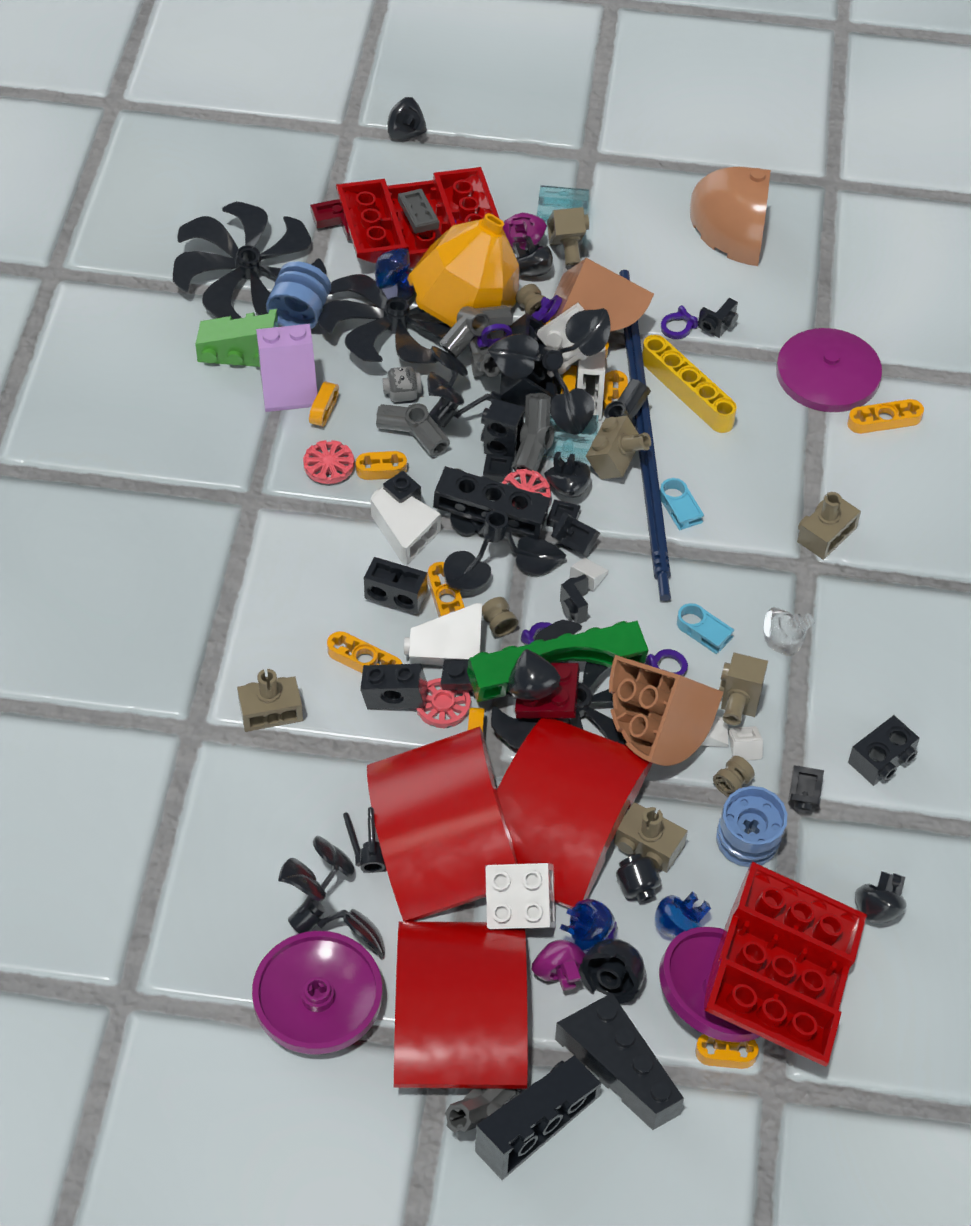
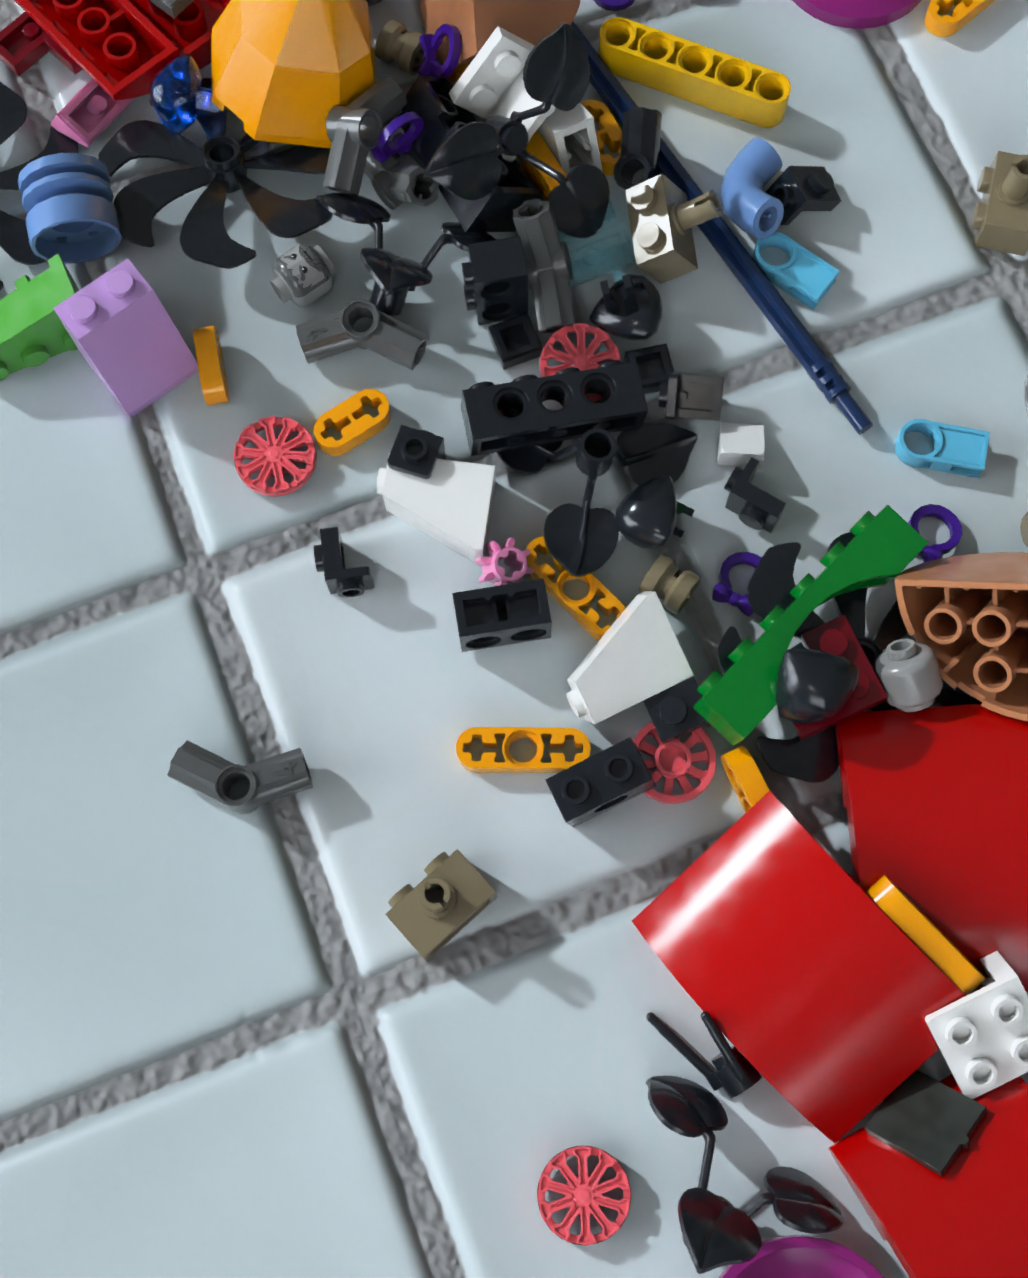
camera: 25 degrees left, 20 degrees up
(205, 601) = (214, 776): none -> dark grey piece
(251, 873) = (584, 1195): none -> coral wheel
(324, 525) = (331, 559): none -> black bracket
(341, 260) = (88, 114): none -> bright pink slope
(415, 557) = (512, 557): none -> bright pink gear
(458, 925) = (926, 1121): none -> pearl dark grey piece
(509, 574) = (650, 513): none -> black piece
(513, 825) = (926, 935): none -> light orange beam
(595, 710) = (909, 675): none -> light grey head
(678, 449) = (743, 189): none -> medium blue cylinder
(711, 466) = (804, 190): none -> black bracket

